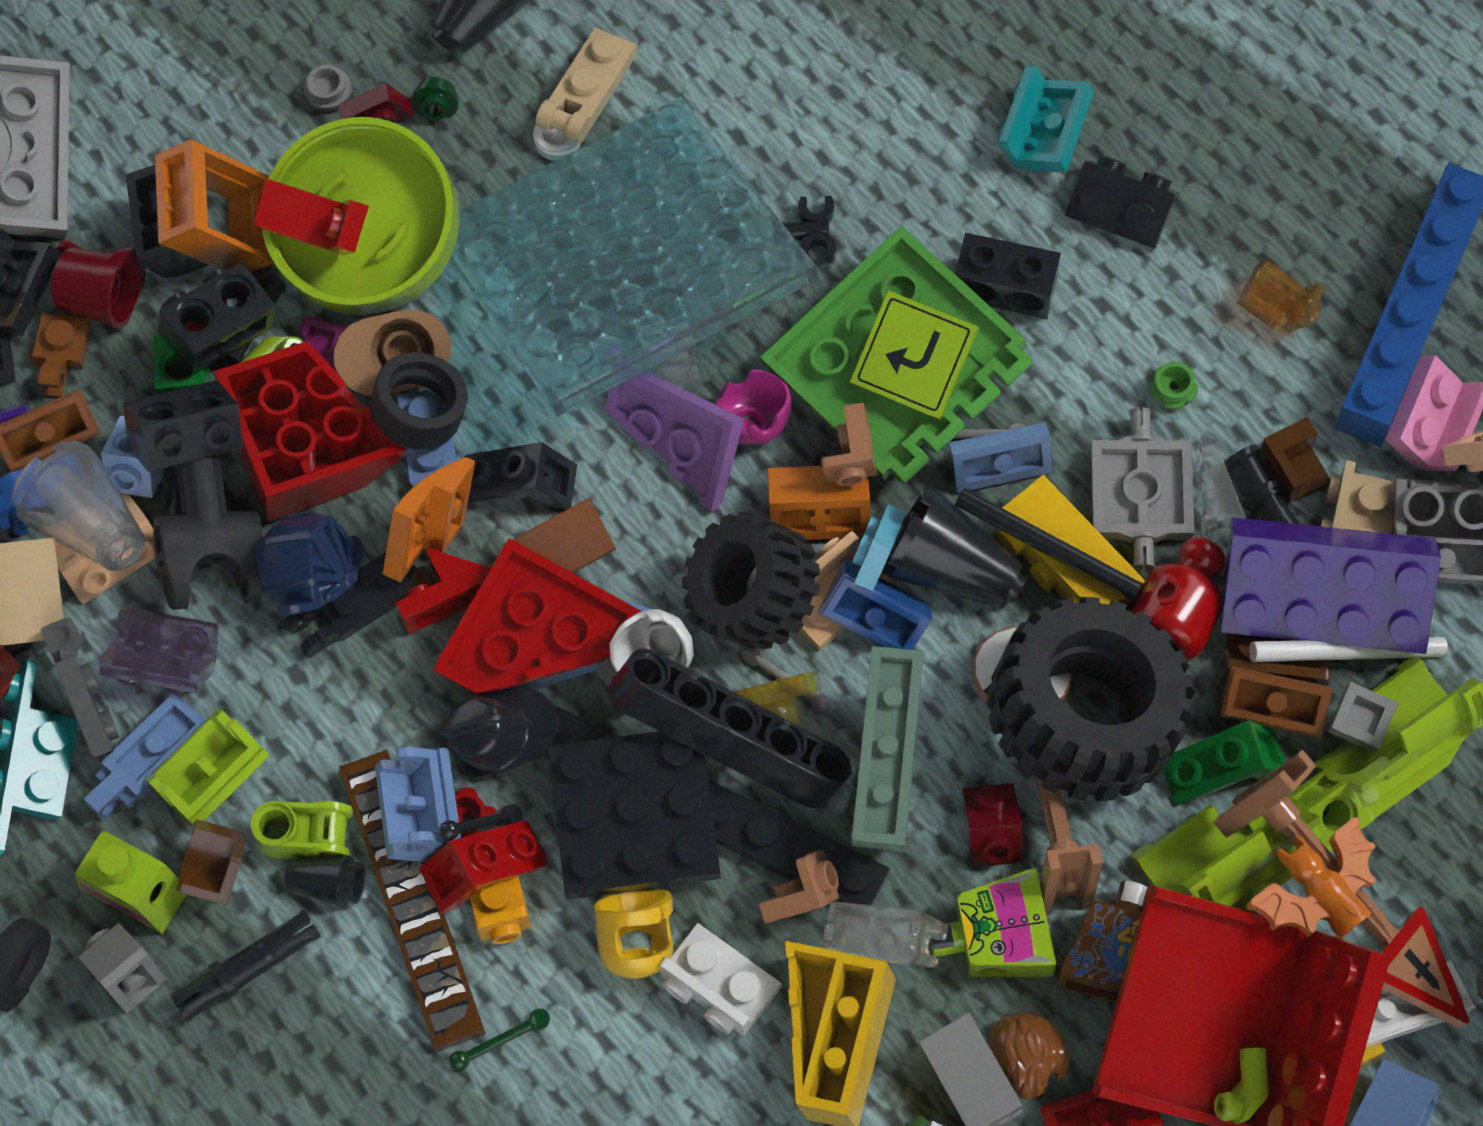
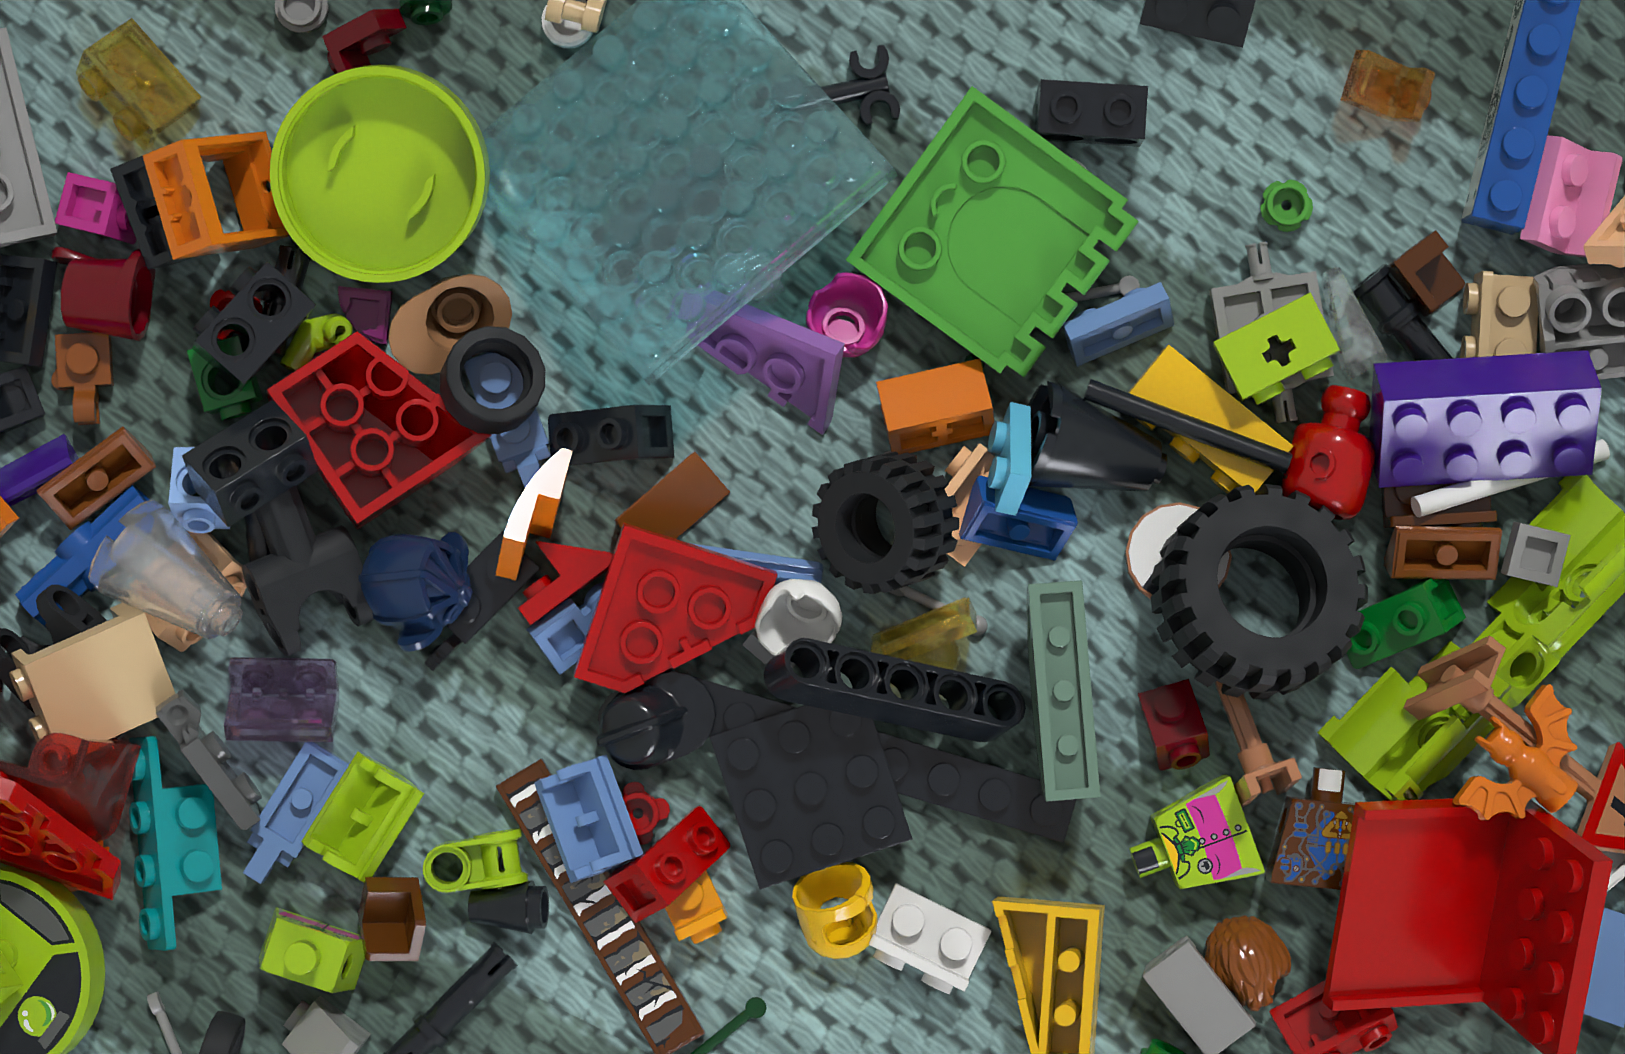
camera: 20 degrees left, 20 degrees up
(104, 215) = (94, 208): none -> dark pink bracket
(164, 114) = (135, 83): none -> clear yellow bracket
(310, 217) = (332, 194): red bracket -> none
(429, 638) = (564, 629): none -> medium blue plate
(509, 814) = (681, 803): black hinge -> none
(811, 891) = (1000, 843): nougat bracket -> none
(857, 442) = (968, 348): nougat bracket -> none
(882, 933) = (1086, 876): clear hinge -> none
(914, 354) = (1013, 241): lime piece -> none
(1159, 471) = (1296, 323): none -> lime brick
(1250, 1092) = (1475, 969): lime arm -> none

